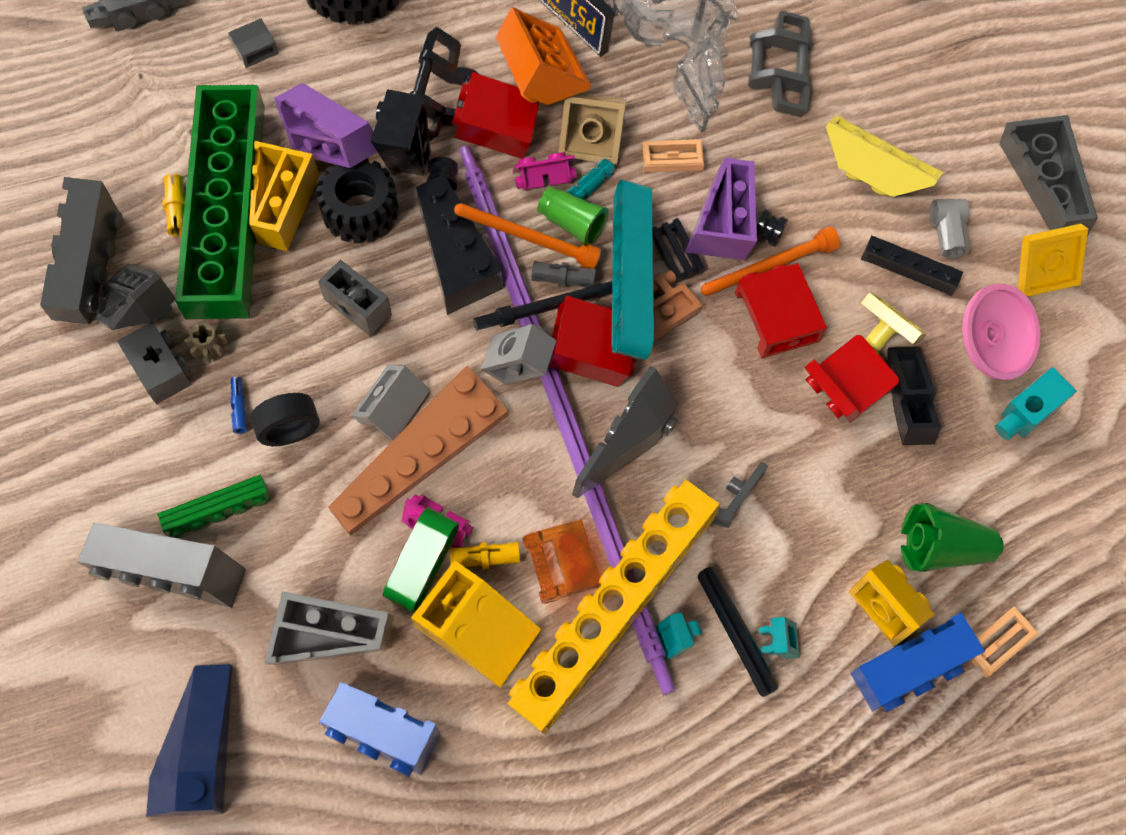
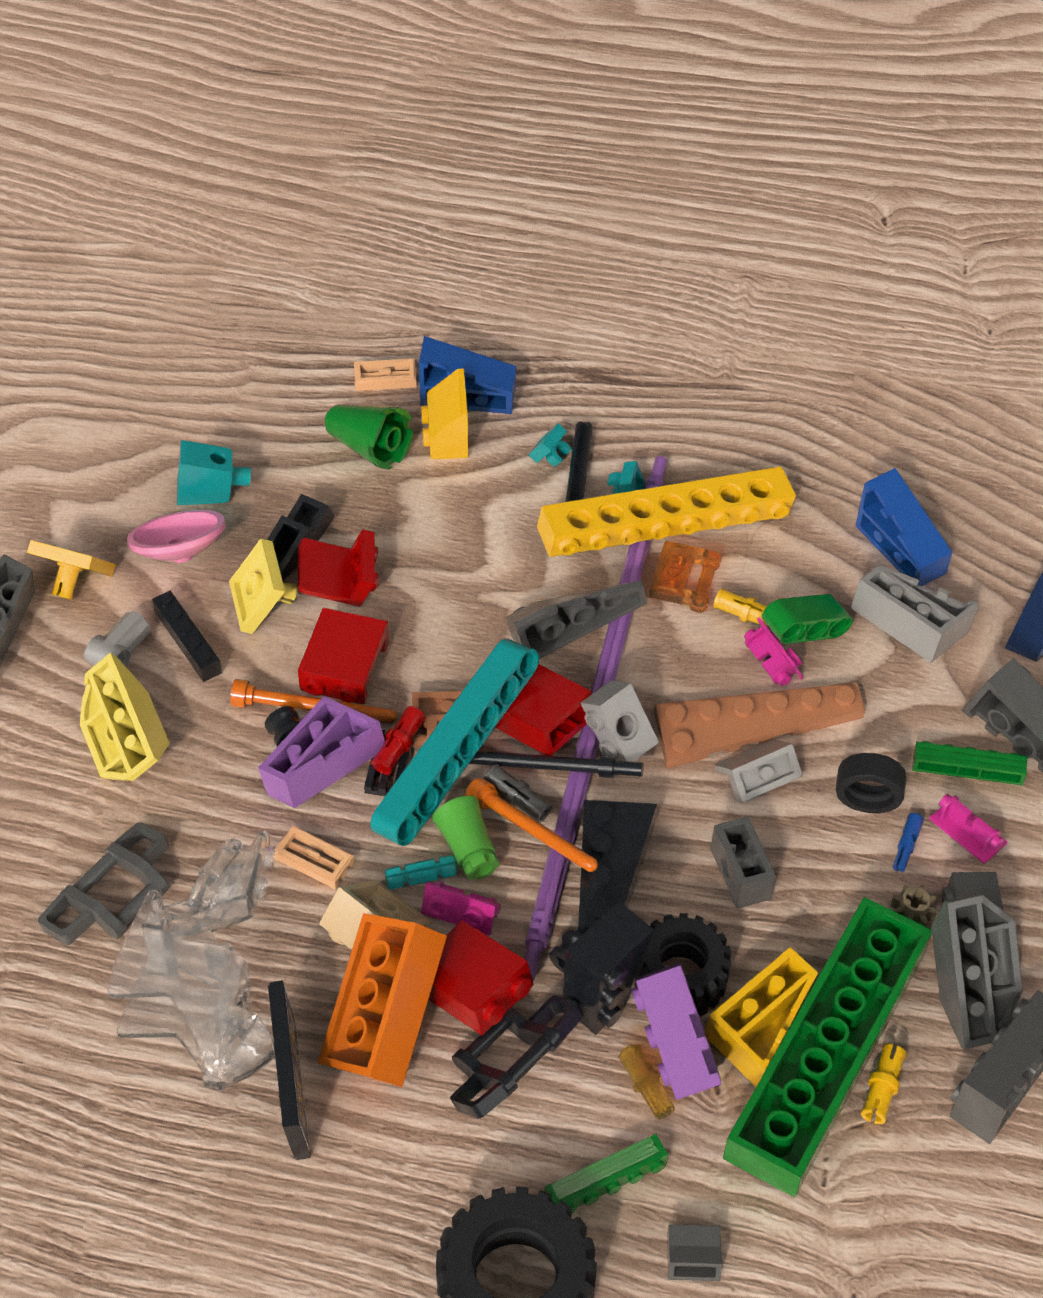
camera: 145 degrees left, 15 degrees down
(189, 441) = (967, 829): none -> dark pink hinge
(335, 55) = (610, 1173): none -> green piece
(475, 624) = (789, 563): yellow slope -> none
(678, 253) = (398, 740): none -> red pin
(741, 491) = (499, 548): dark grey piece -> none

